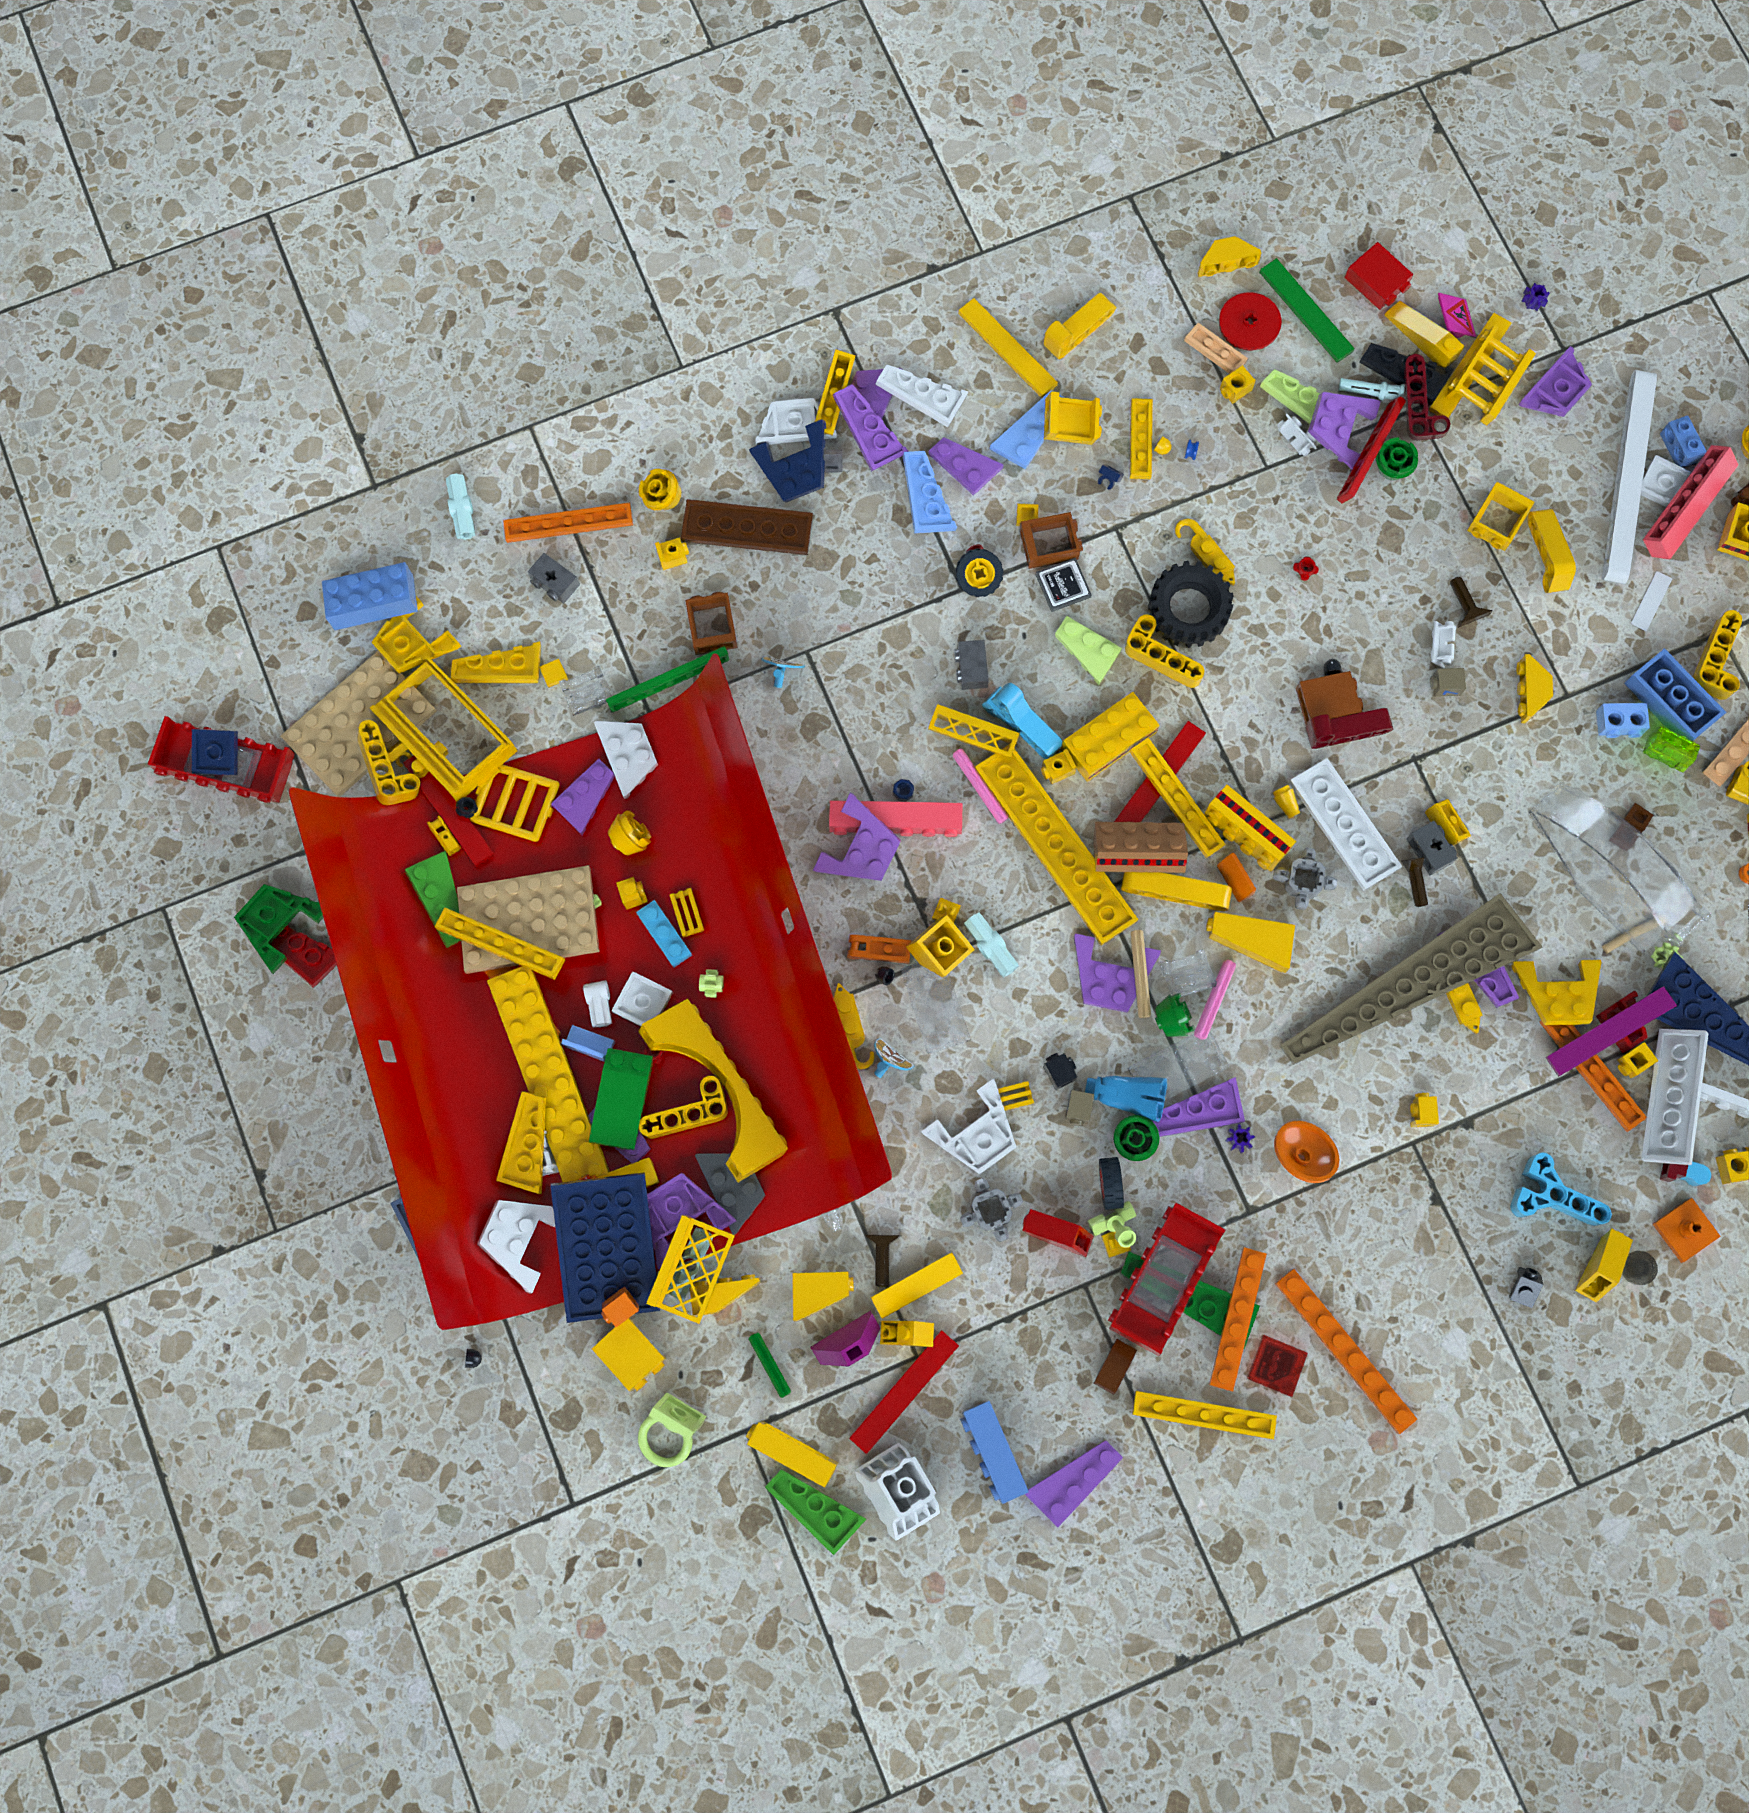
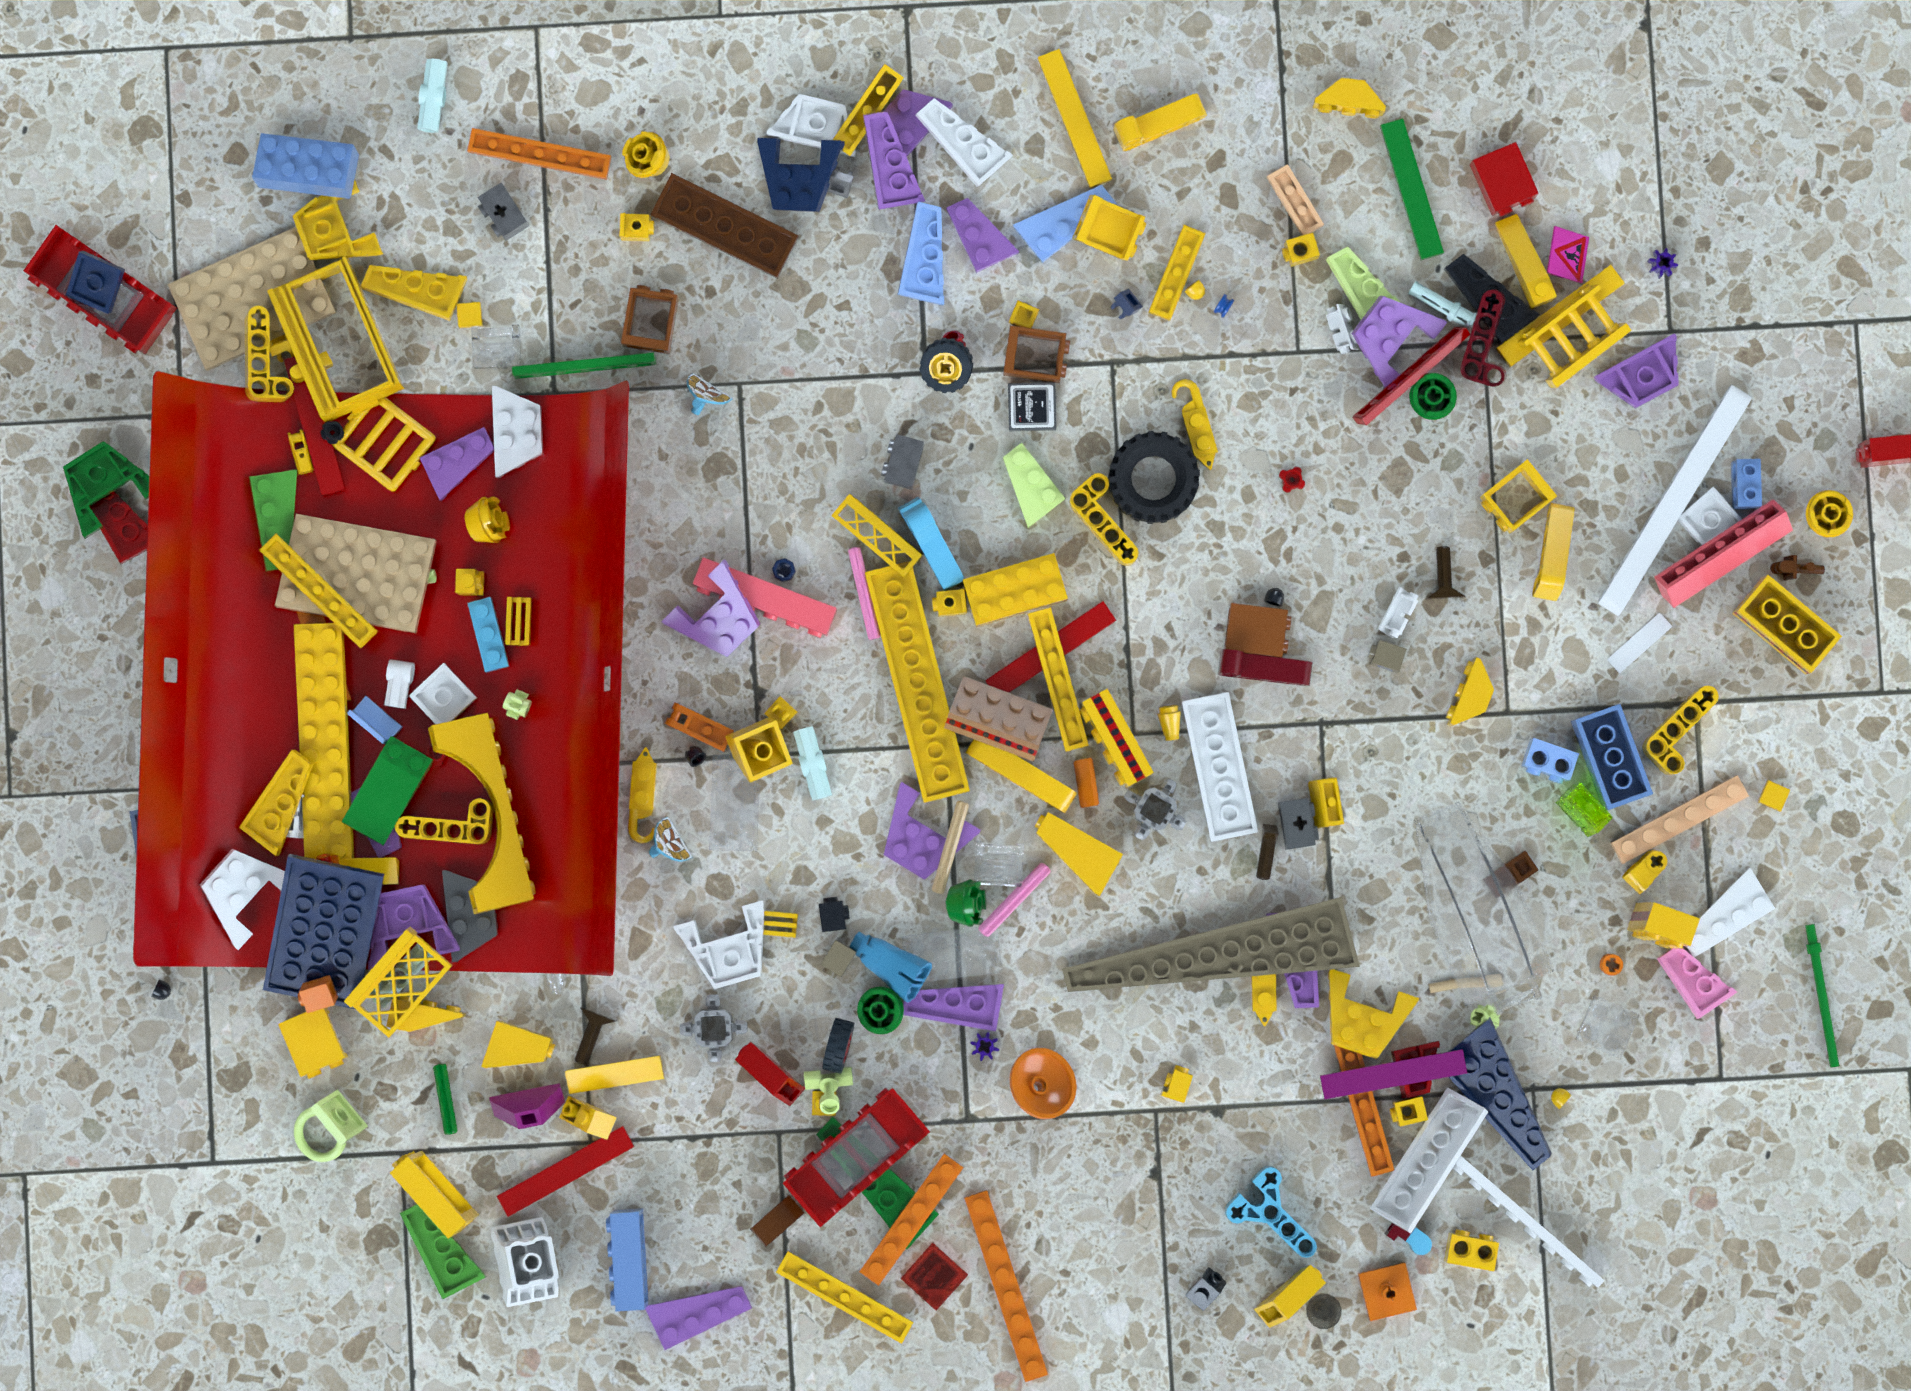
camera: 20 degrees right, 10 degrees up
(1265, 320) = (1363, 174): red piece -> none

